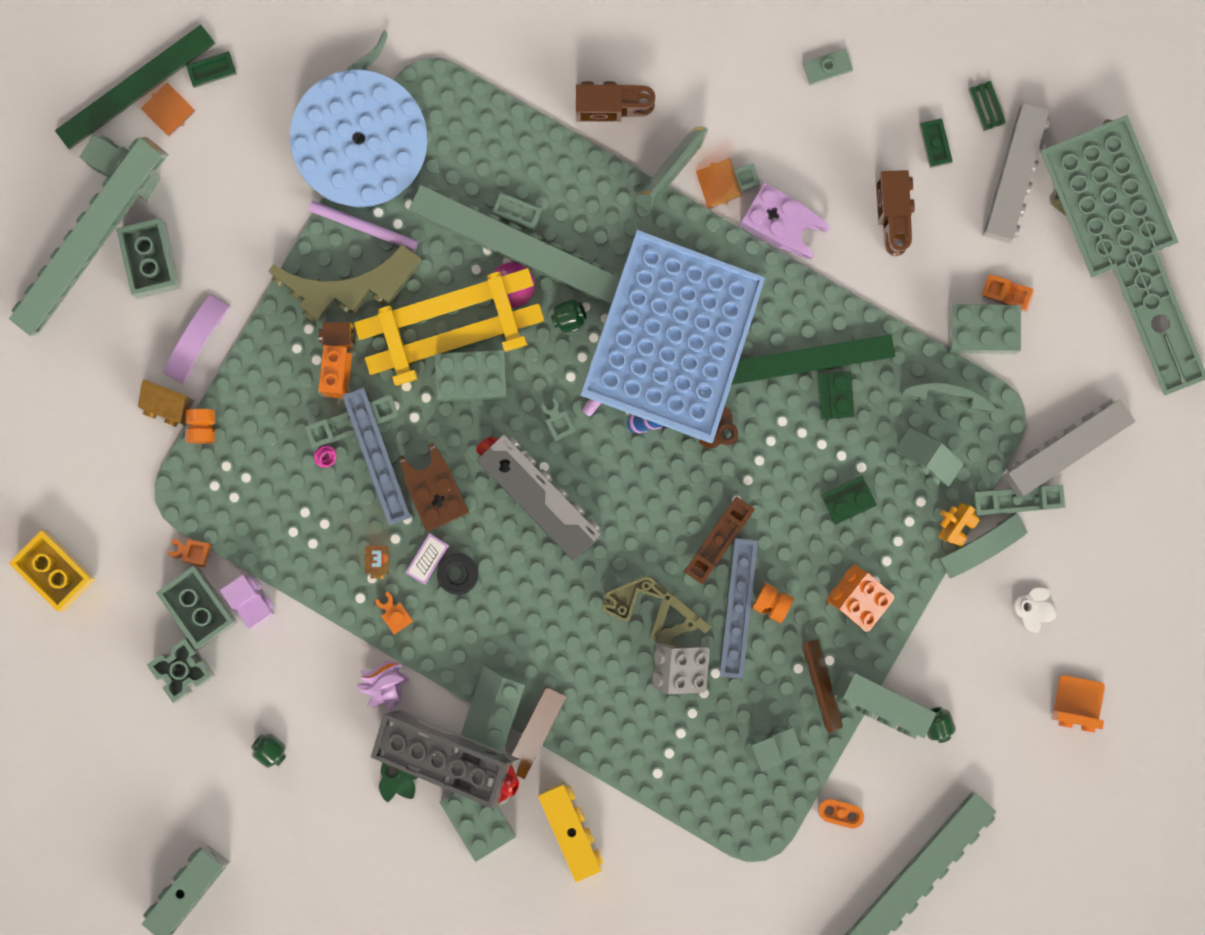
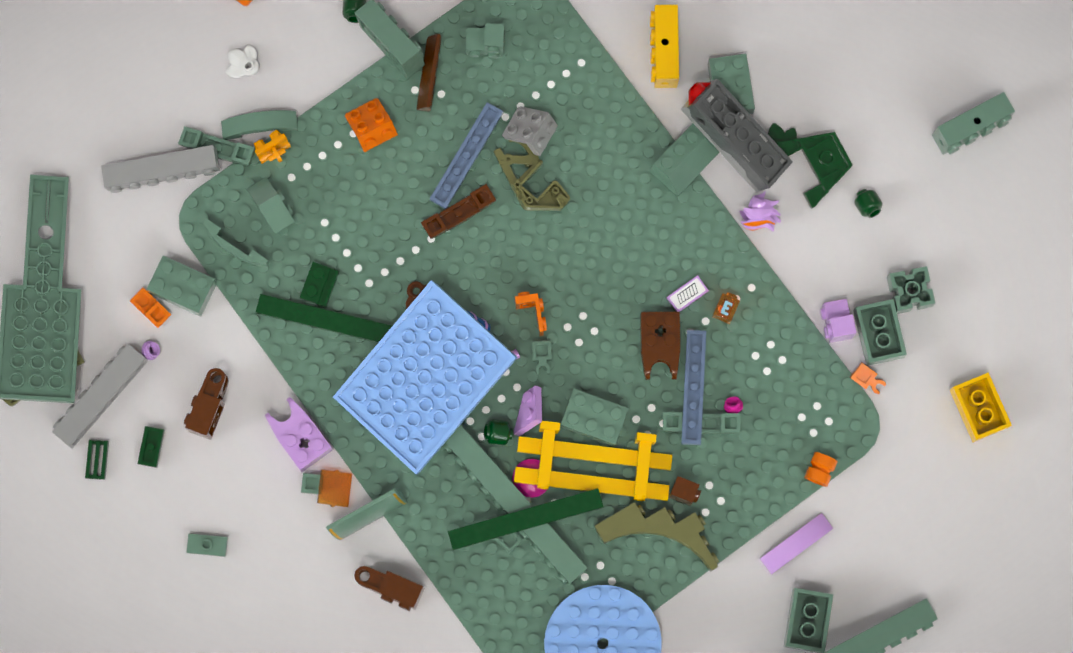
camera: 155 degrees left, 5 degrees down
(163, 402) = (841, 500): pearl gold slope -> none
(336, 378) = (699, 462): orange window -> none
(337, 781) = (825, 158): none -> dark green wing
(363, 225) = (628, 574): lavender piece -> none
(395, 616) = (729, 262): orange plate -> none
(443, 574) = (669, 284): black tyre -> none
(497, 231) = (525, 519): none -> dark green tile
(537, 495) = (582, 301): piece -> none
(537, 729) = (658, 132): slope -> none
(544, 353) = (530, 411): none -> lavender wing
(601, 471) = (528, 300): none -> orange bracket
(773, 603) = (438, 147): orange wheel -> none
(848, 500) = (346, 201): dark green plate -> none
(980, 247) = (150, 350): none -> lavender plate

